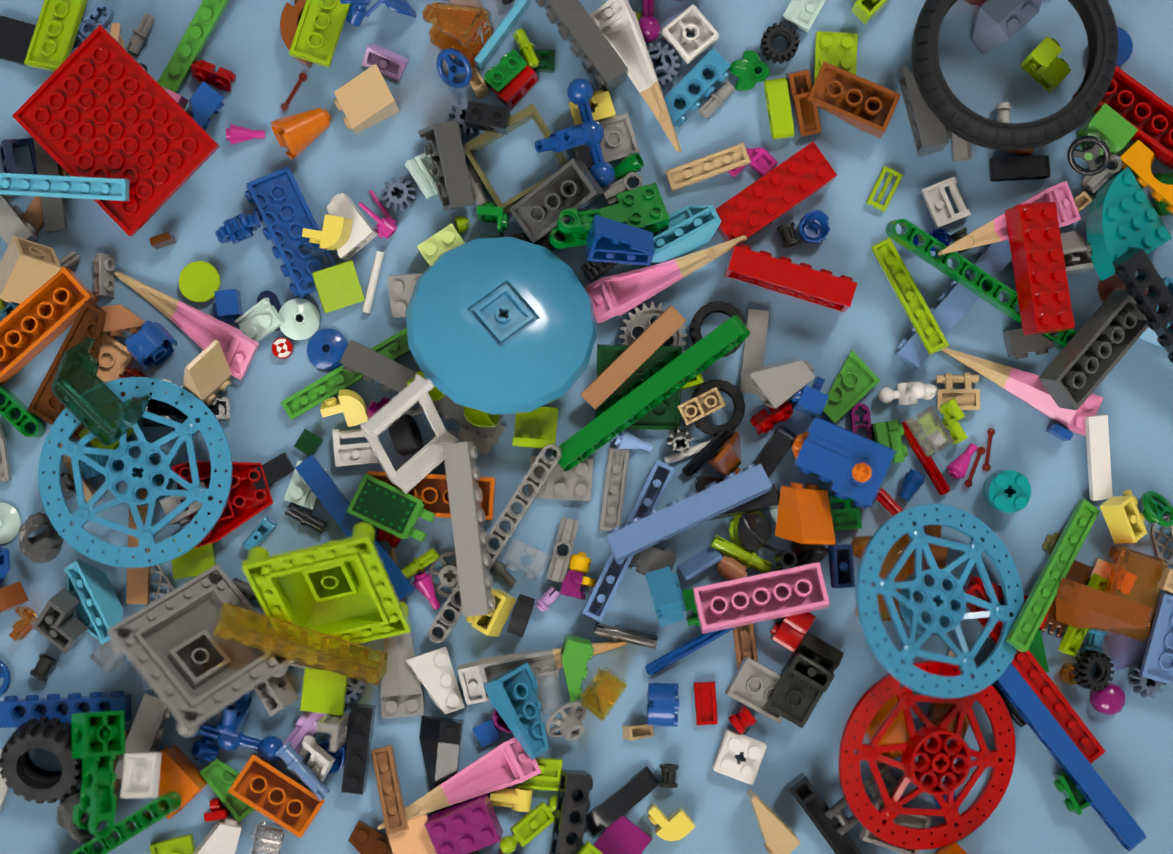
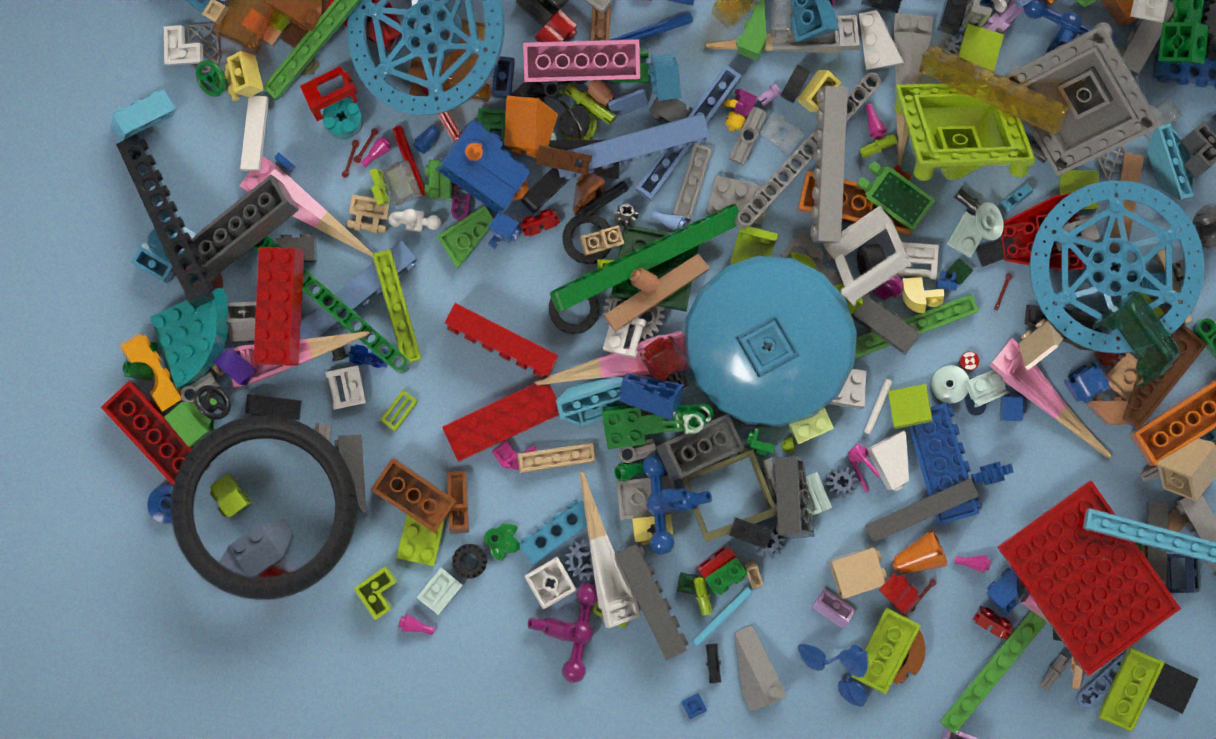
camera: 170 degrees left, 0 degrees up
(104, 266) = (1120, 446): light grey hinge -> none
(162, 240) = (1062, 477): reddish brown tile -> none
(199, 281) = (1034, 434): lime tile -> none
(205, 750) = (1093, 15): blue gear -> none
(254, 446) = (1008, 276): none -> clear red hinge
(276, 694) = (1021, 51): light grey brick -> none
(284, 500) = (989, 221): none -> light aqua dish
(307, 178) = (922, 510): none -> dark grey tile
(317, 85) = (899, 593): none -> red brick
(320, 426) = (946, 283): none -> blue tile
(331, 359) = (922, 360): blue dish -> none
(334, 234) = (907, 450): light yellow brick -> none
(337, 505) = (941, 207): blue tile -> none
(447, 575) = (854, 131): light grey wheel -> none
(455, 66) = (768, 592): blue piece -> none
(459, 27) = (762, 616): clear orange windscreen -> none
(499, 569) = (806, 128): dark grey bar -> none
(614, 286) = (662, 357): none -> clear red brick
(628, 636) = (705, 51): dark grey pin -> none
(648, 365) = (645, 280): none -> nougat brick
(667, 296) = (616, 340): none -> white plate
(686, 453) = (614, 204): white bar -> none
(716, 99) = (537, 518): light grey axle -> none
(754, 345) = (544, 283): light grey tile -> none
(762, 482) = (563, 159): none -> reddish brown plate
(779, 108) = (481, 500): lime beam -> none
(779, 380) = (528, 251): light grey slope -> none
(788, 235) = (494, 382): pearl dark grey bush -> none
(814, 227) = (470, 385): blue hair -> none
(1003, 112) = (278, 458): white pin -> none
(1047, 509) = (317, 102): none -> red window
(1070, 200) = (235, 366): none -> dark purple slope

